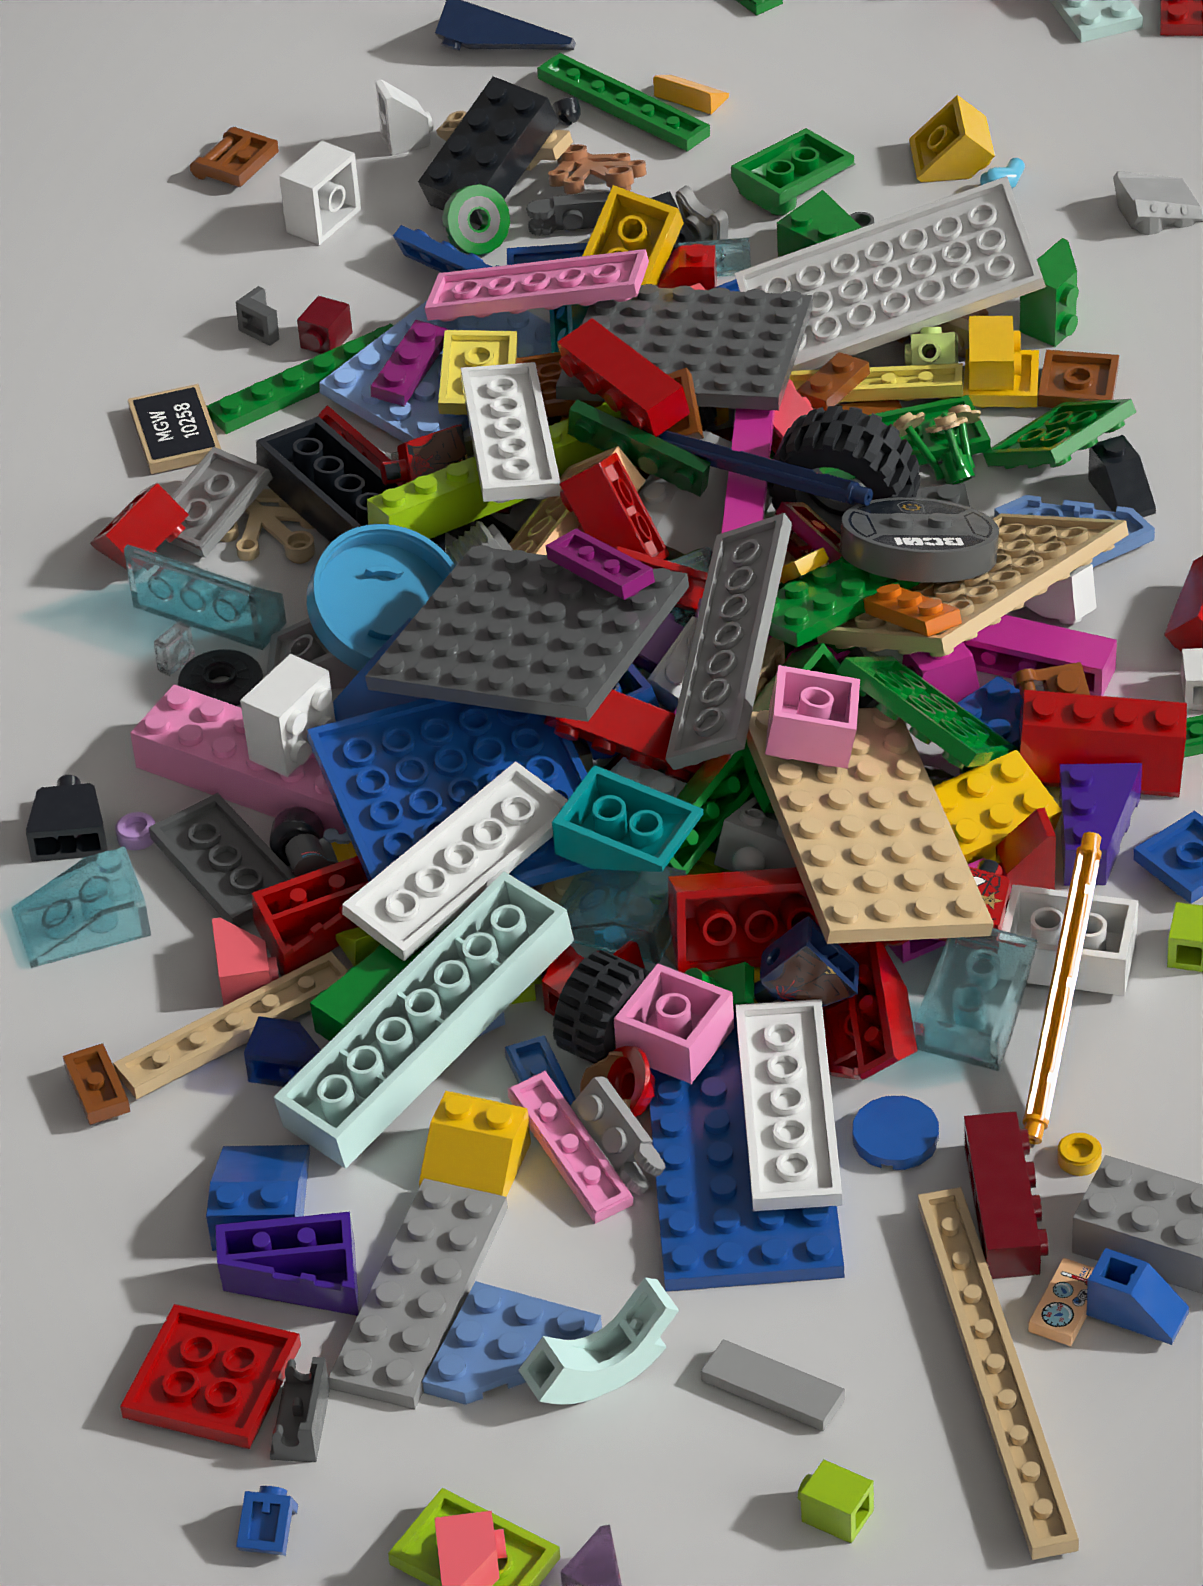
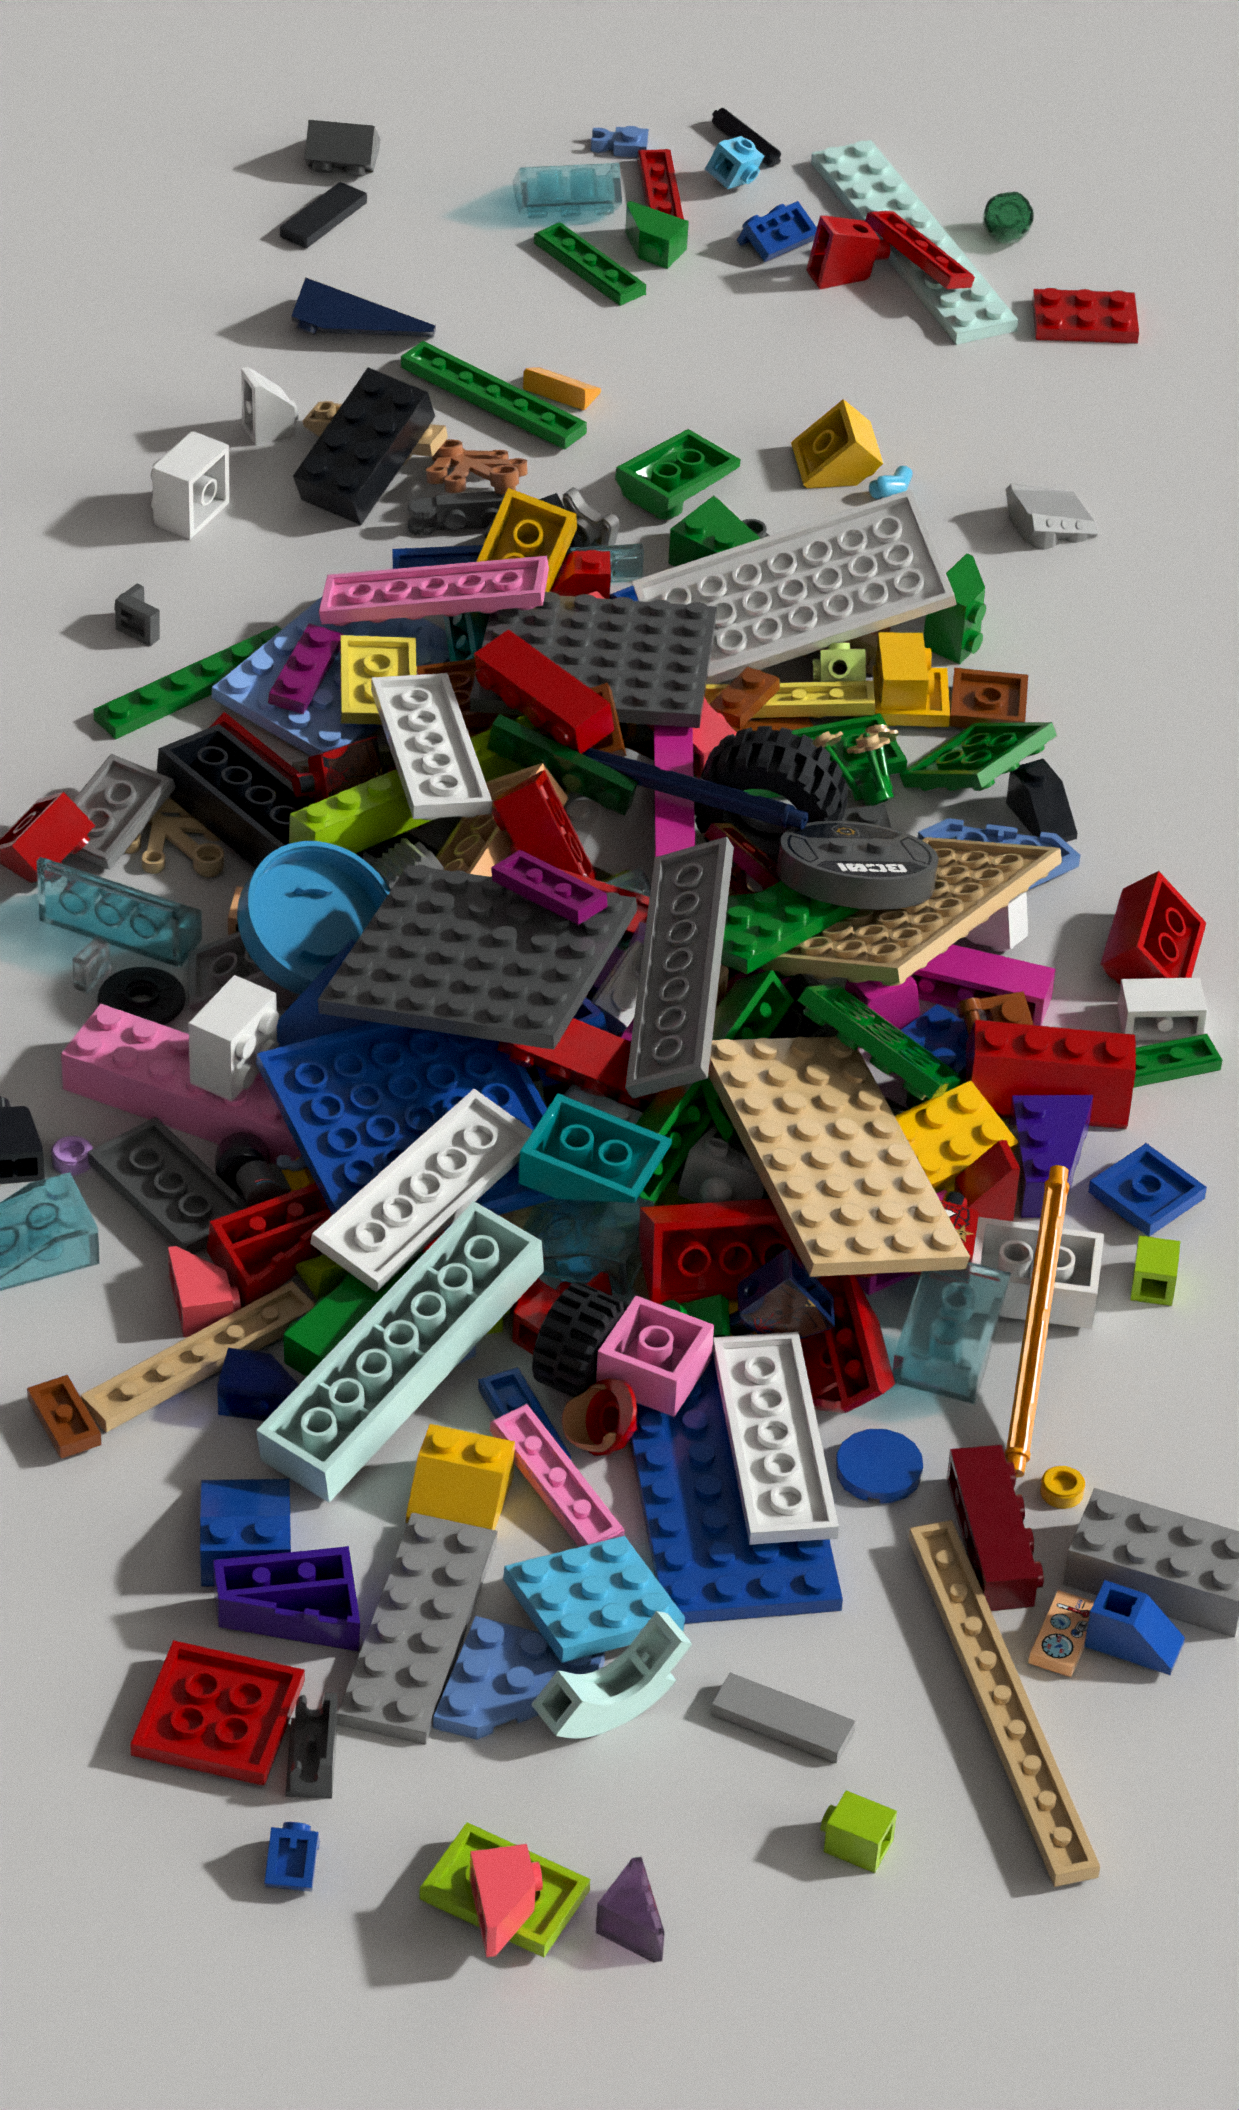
camera: 10 degrees left, 0 degrees up
(173, 428) = (61, 732): black tile -> none
(235, 157) = (99, 449): dark orange plate -> none
(324, 325) = (208, 626): dark red brick -> none
(436, 255) = (318, 554): blue plate -> none
(494, 219) = (375, 517): green tile -> none
(567, 110) = (440, 402): black hinge -> none
(590, 1263) = (589, 1597): none -> medium azure plate
(618, 1134) = (605, 1467): light grey hinge -> none
(803, 565) = (746, 887): yellow tile -> none
(812, 717) = (777, 1047): bright pink brick -> none
(912, 610) = (861, 938): orange plate -> none

